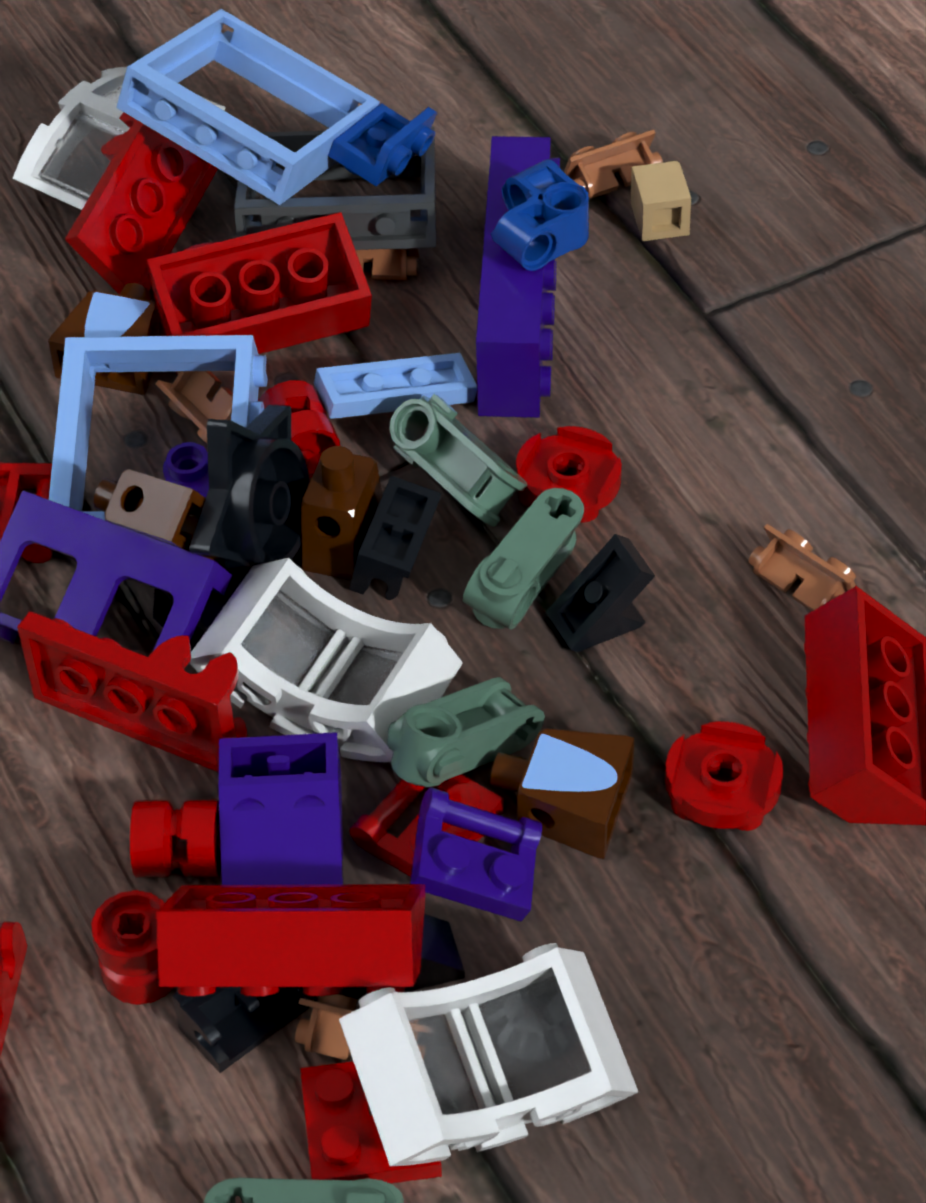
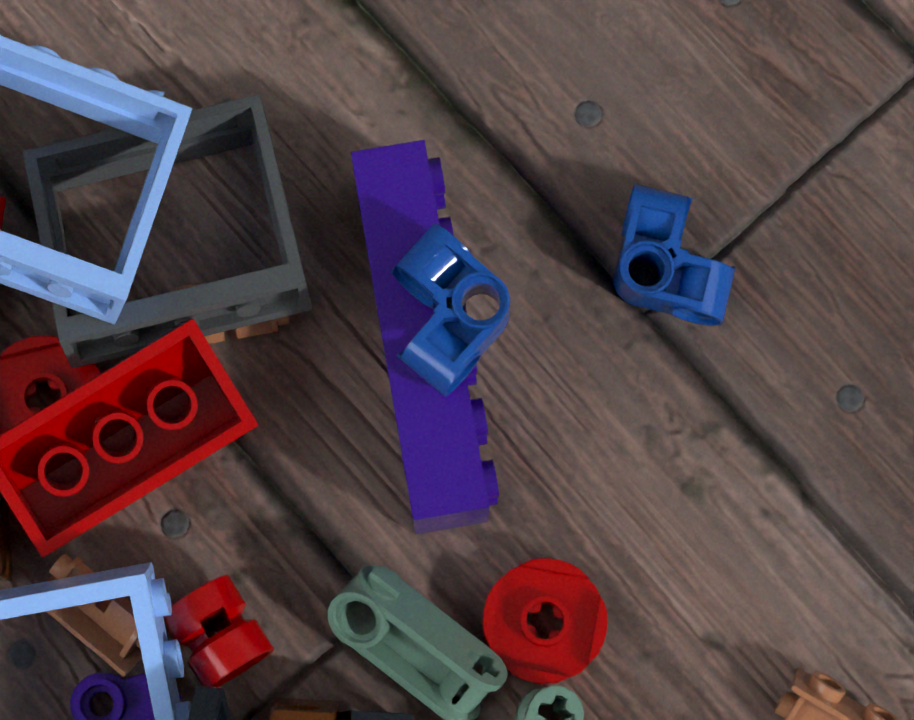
camera: 15 degrees left, 30 degrees up
(383, 143) = (213, 177): blue bracket -> none
(389, 383) = (315, 539): light blue plate -> none
(595, 167) = (469, 104): nougat hinge -> none
(660, 200) = (562, 149): tan panel -> none
(724, 278) = (688, 284): none -> blue piece

